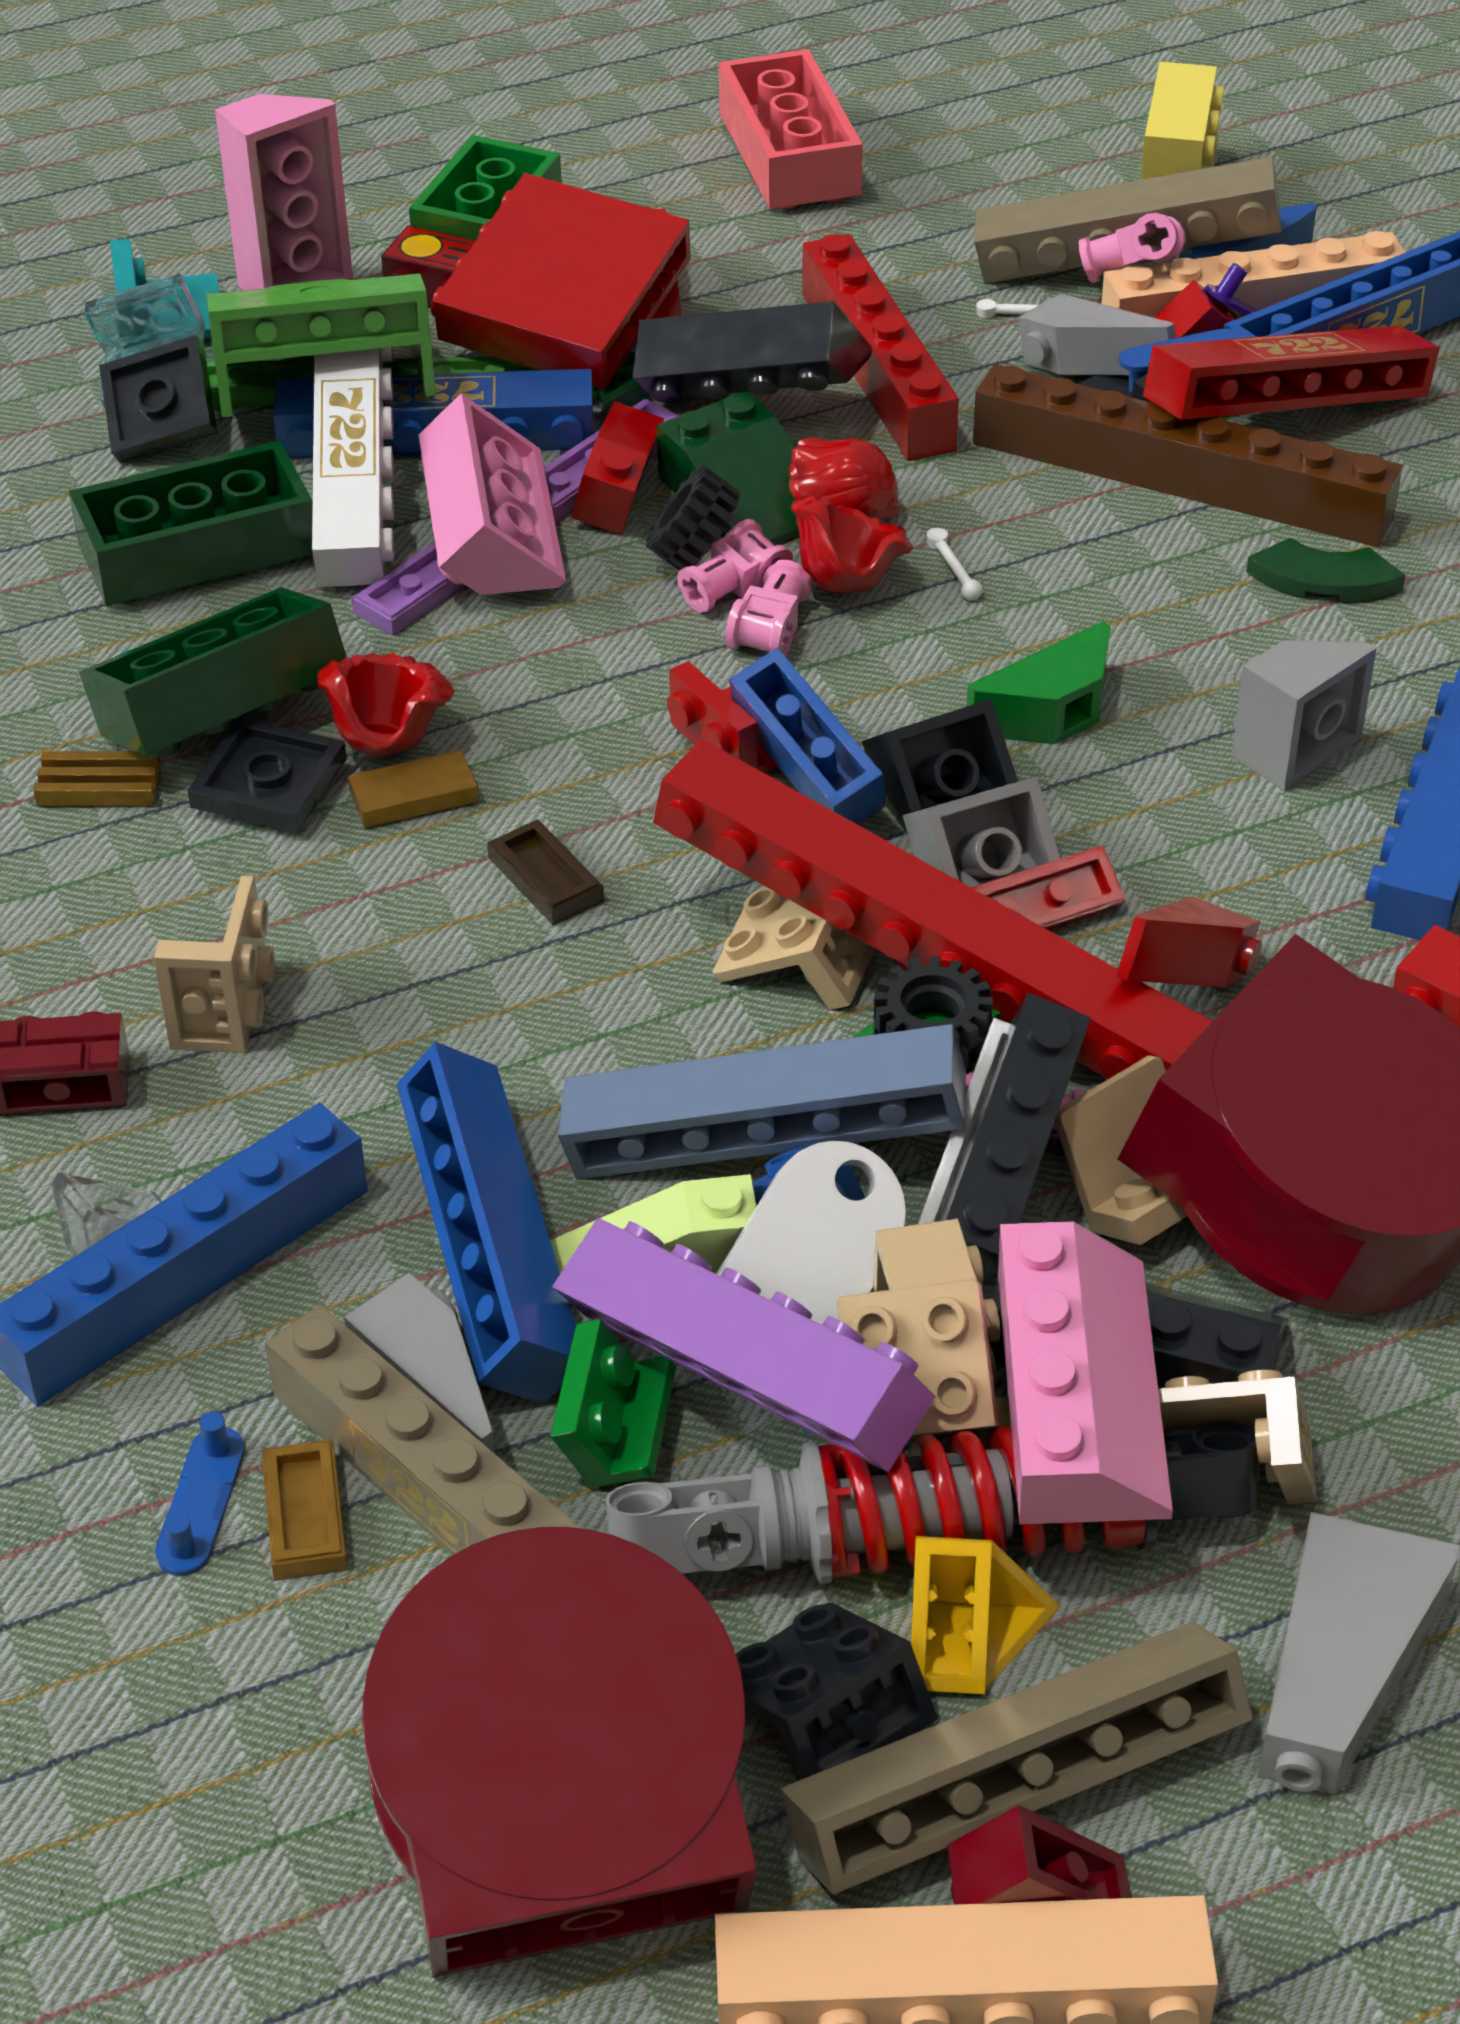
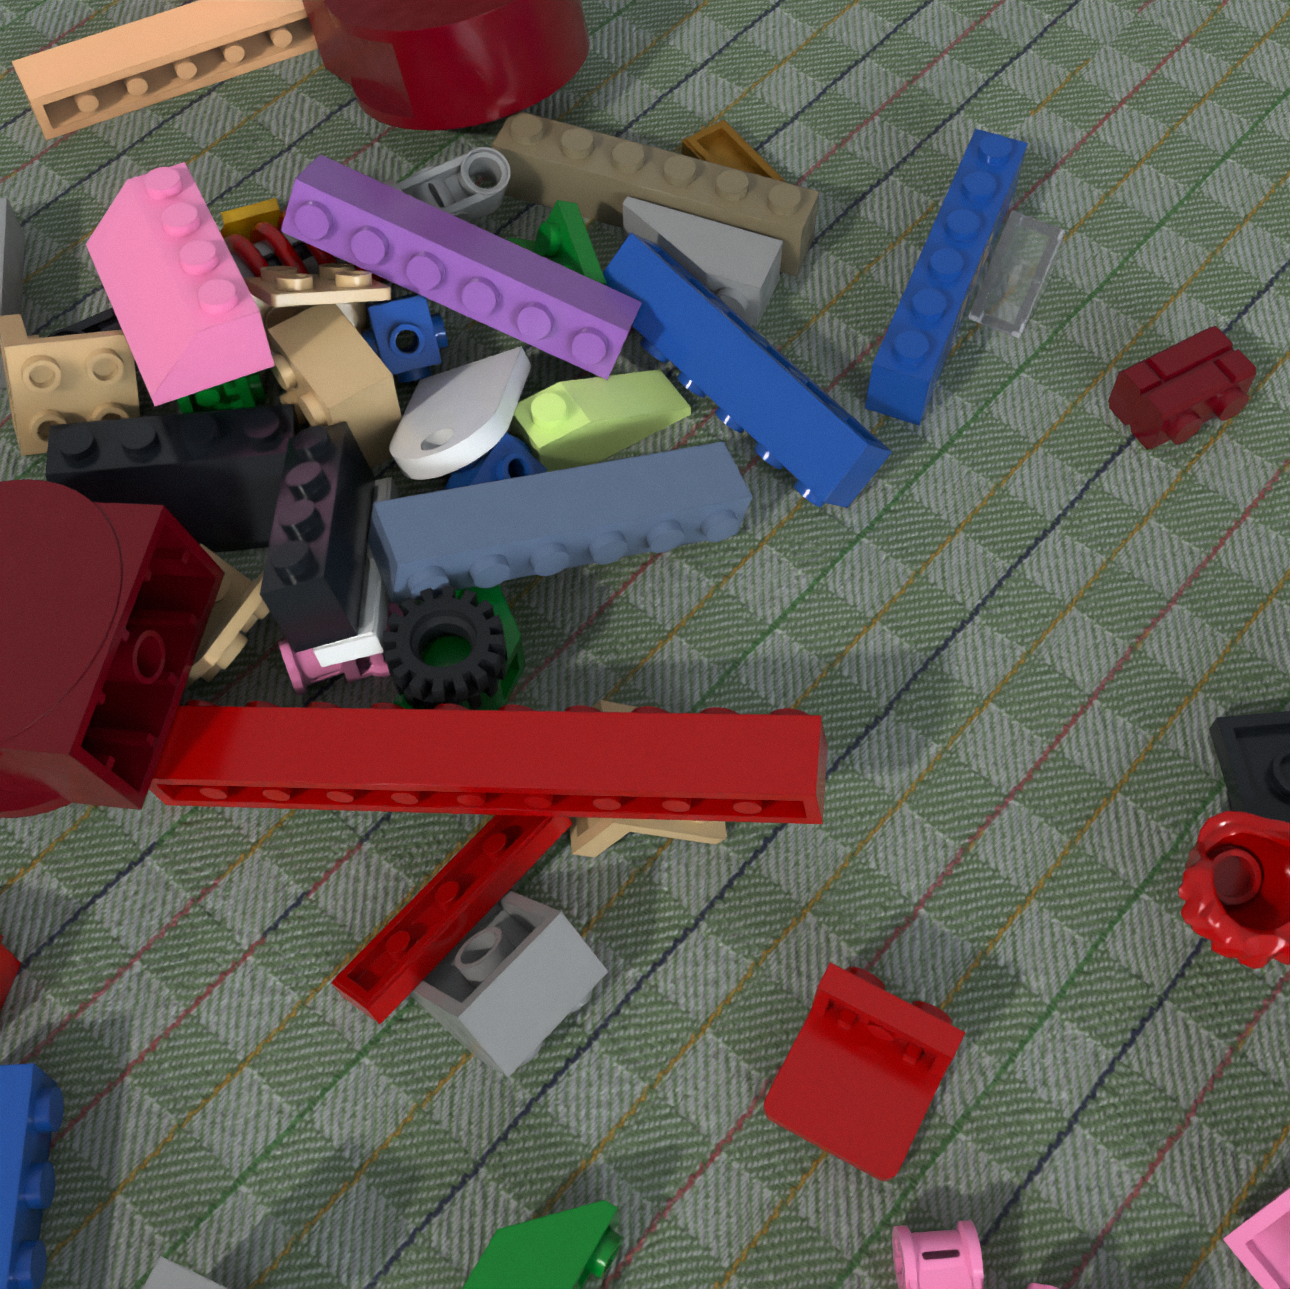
camera: 155 degrees right, 15 degrees up
(200, 1497) = (805, 152): blue piece -> none
(214, 988) = (1105, 486): tan bracket -> none
(413, 788) = (1146, 834): pearl gold tile -> none
(545, 872) = (943, 782): dark brown tile -> none
(808, 739) = (757, 1008): blue brick -> none
(835, 1687) = (327, 131): black bracket -> none
(941, 759) = (602, 1087): black slope -> none
(1013, 1753) = (199, 128): dark tan brick -> none
(1032, 1861) = (142, 102): dark red slope -> none
(1190, 945) = (222, 890): red slope -> none

